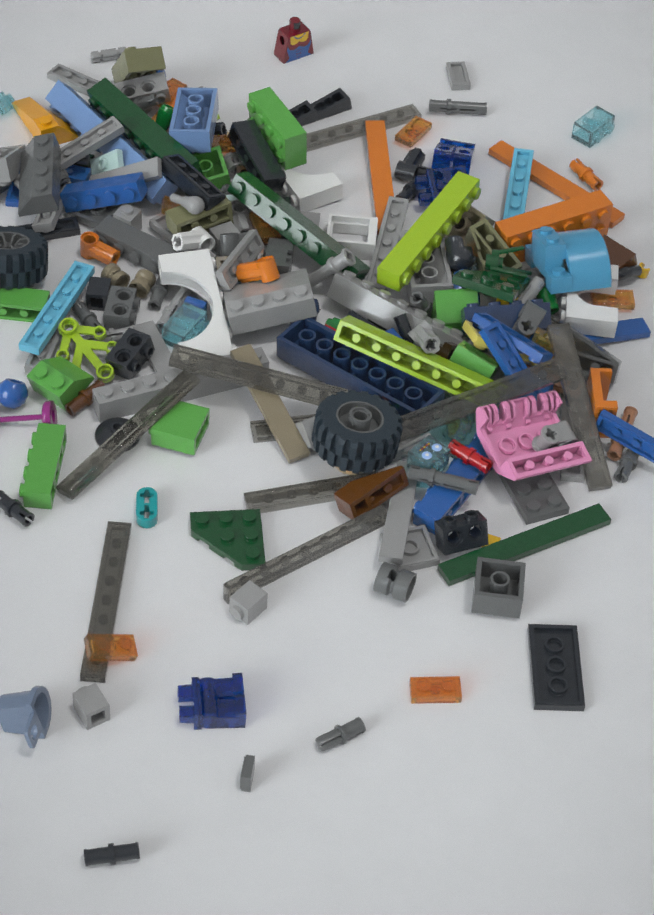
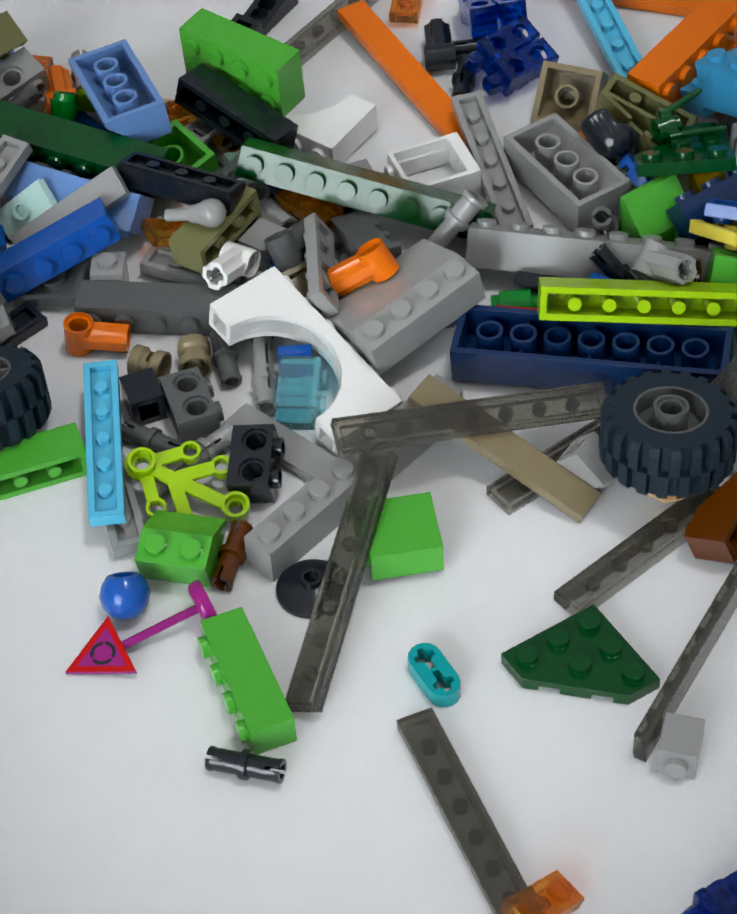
camera: 20 degrees left, 0 degrees up
(428, 231) = (551, 123): lime brick -> none

